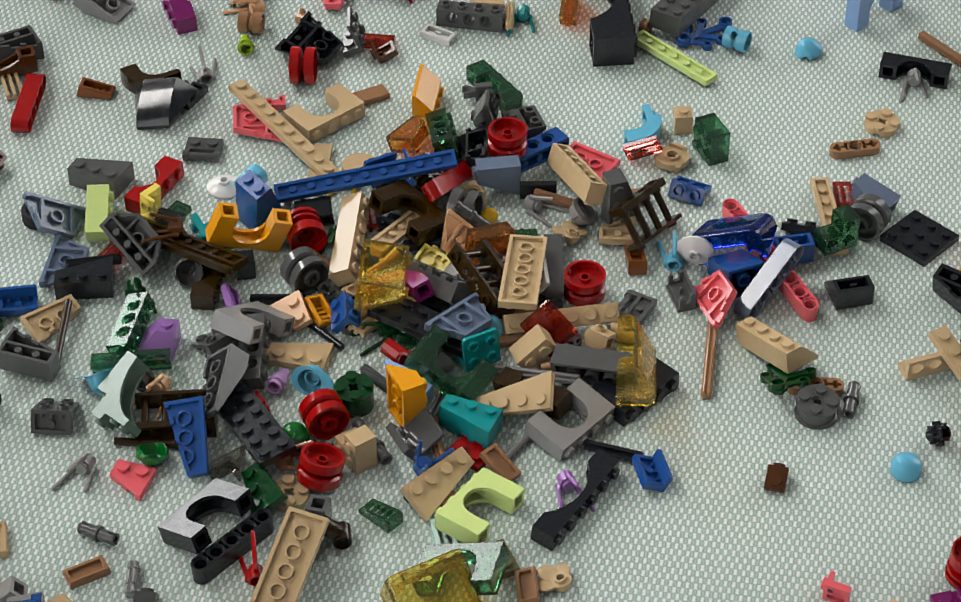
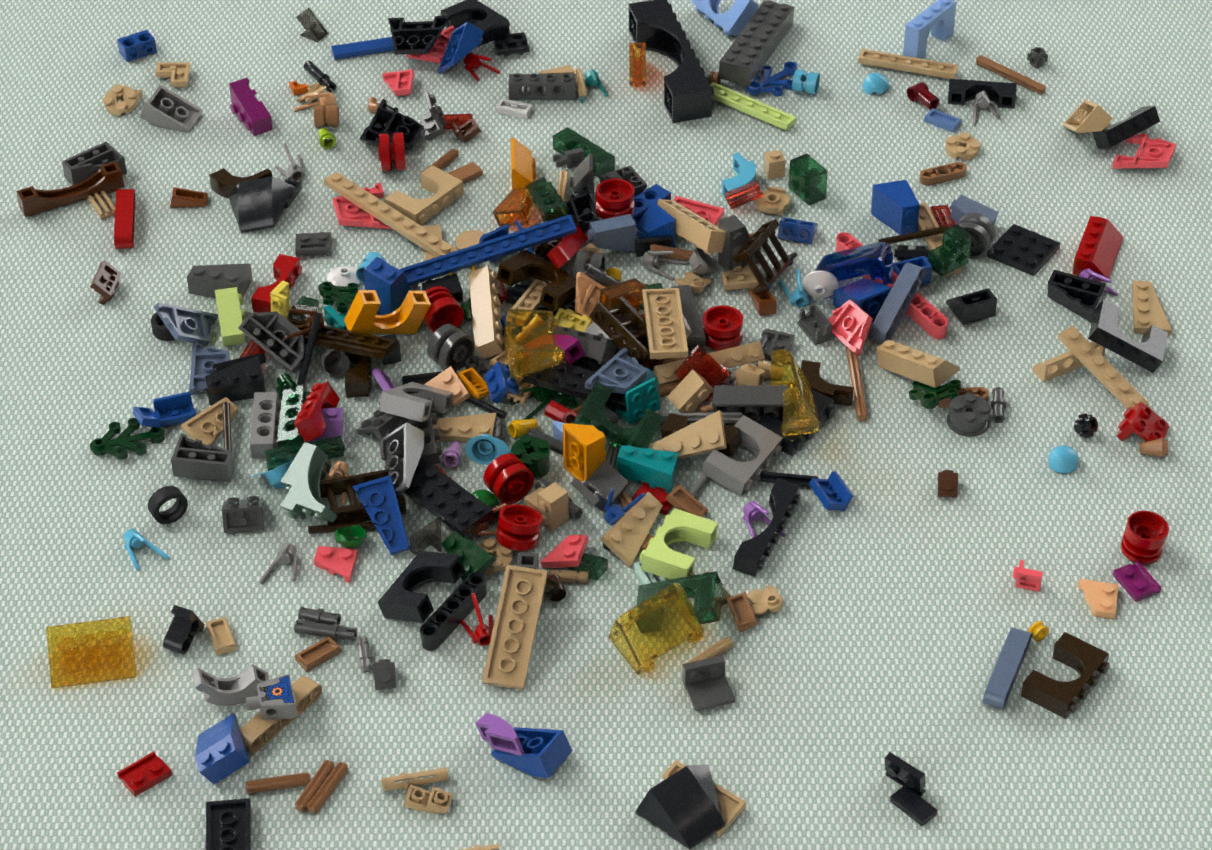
camera: 10 degrees left, 0 degrees up
(100, 325) = (264, 423): none -> light grey brick
(108, 551) = (334, 631): none -> dark grey pin
(142, 329) = (310, 418): none -> red arch
(164, 255) = (309, 349): none -> black bar
(204, 197) = (329, 290): none -> dark green plant
(332, 363) = (500, 430): none -> dark grey axle
(353, 362) = (521, 427): none -> yellow cone
(356, 78) = (445, 159): none -> medium nougat axle
(362, 524) = (571, 576): none -> tan axle
(364, 500) = (567, 553): none -> coral wing
(464, 119) = (563, 184): none -> tan axle
(545, 167) = (656, 223): none -> blue slope
(664, 343) = (841, 394): none -> dark brown arch
(794, 177) = (896, 206): none -> blue slope
(804, 210) = (914, 235): none -> dark brown bar
(847, 32) = (908, 64): none -> tan plate
(852, 63) = (923, 95): none -> dark red piece
(868, 93) = (943, 120): none -> medium blue tile

